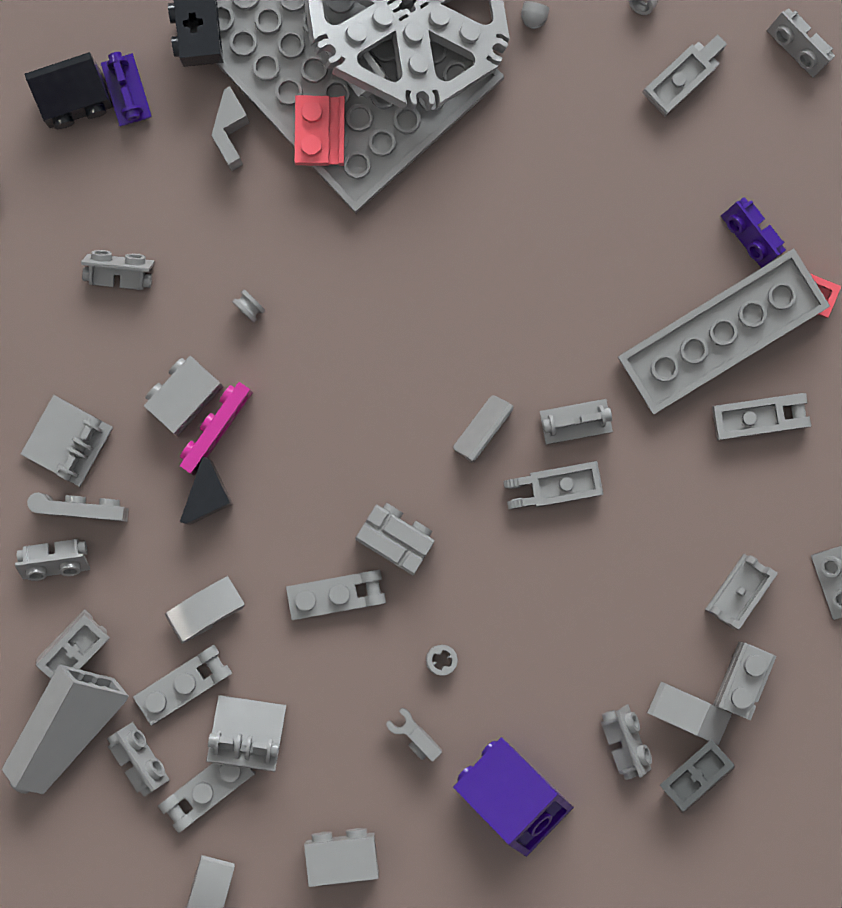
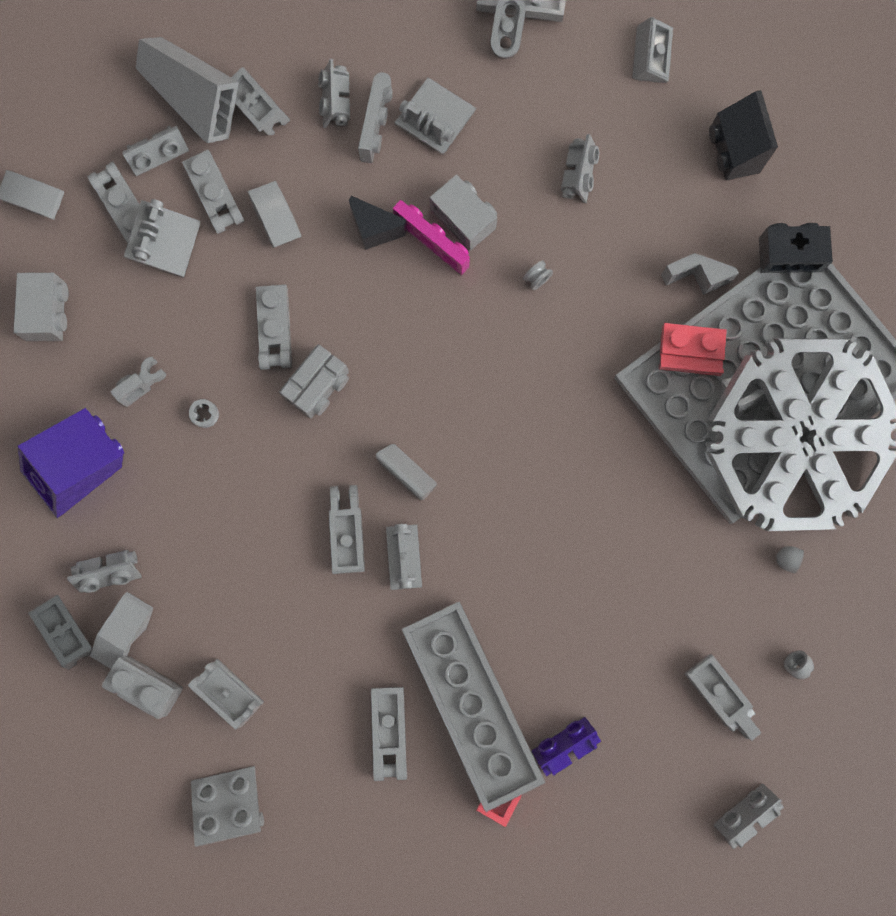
camera: 100 degrees right, 5 degrees down
(125, 88) = (742, 190): dark purple hinge -> none

